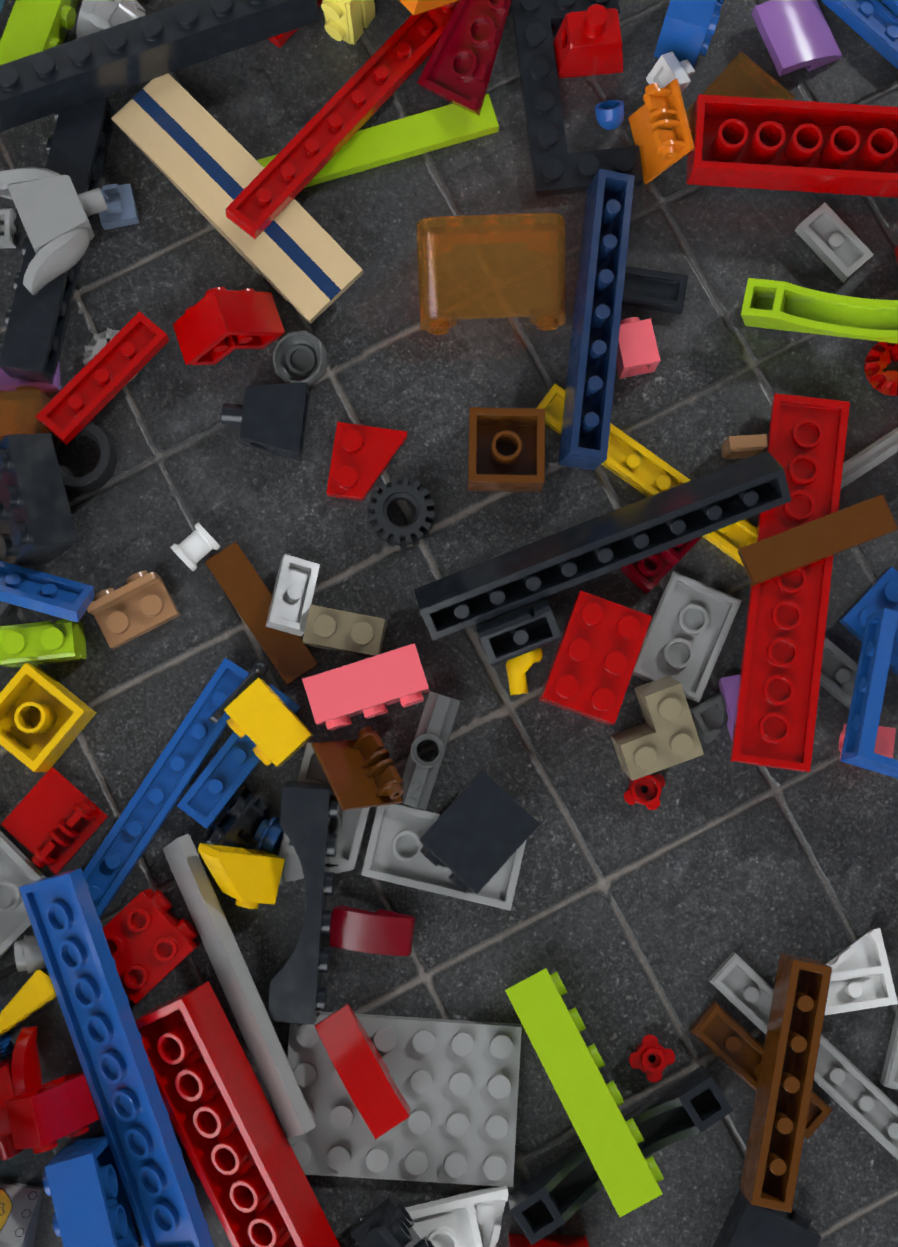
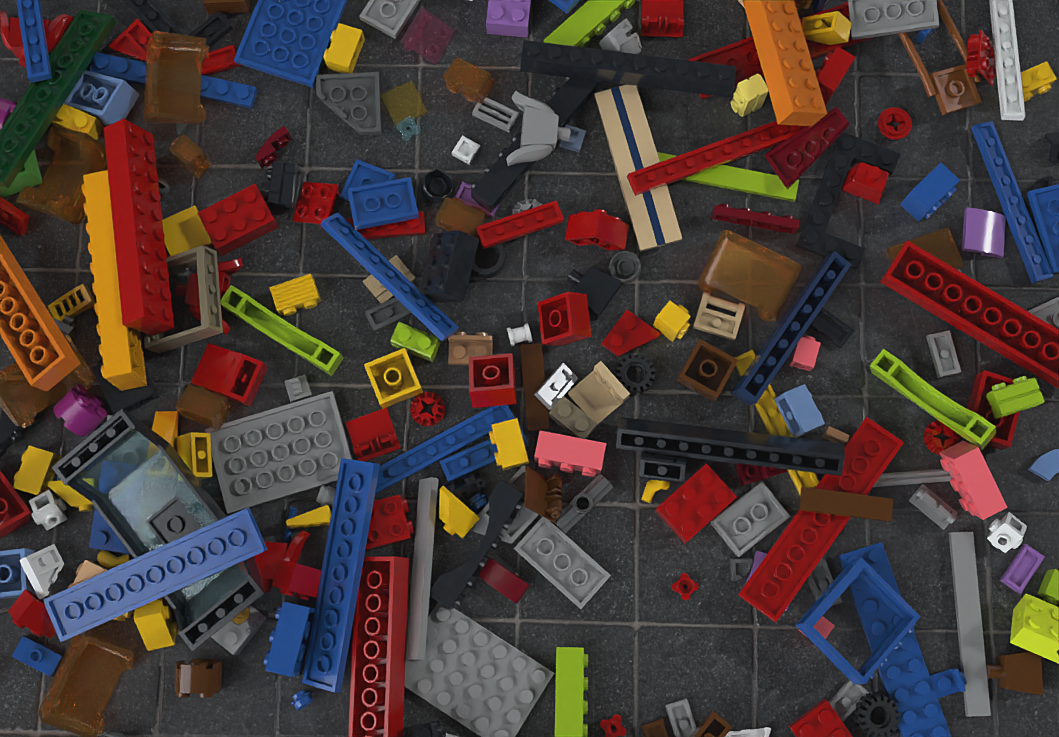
camera: 35 degrees right, 5 degrees down
(132, 726) = (427, 419): none -> red gear
(189, 639) = (492, 380): none -> red brick
(249, 486) = (564, 319): none -> red brick
(259, 669) = (519, 414): black hinge -> none
(362, 1071) = (462, 645): red slope -> none
(363, 571) = (599, 393): none -> tan bracket
(415, 402) = (672, 321): none -> yellow brick
(455, 186) = (762, 220): none -> dark red plate
(477, 833) = (586, 558): black brick -> none
(480, 370) = (717, 322): none -> tan plate
(610, 114) = (858, 223): blue hinge -> none
(661, 129) = (879, 247): orange hinge -> none
(666, 735) = (712, 563): dark tan brick -> none
(670, 68) = (901, 221): white tile -> none
(673, 438) = (799, 411): none -> medium blue brick

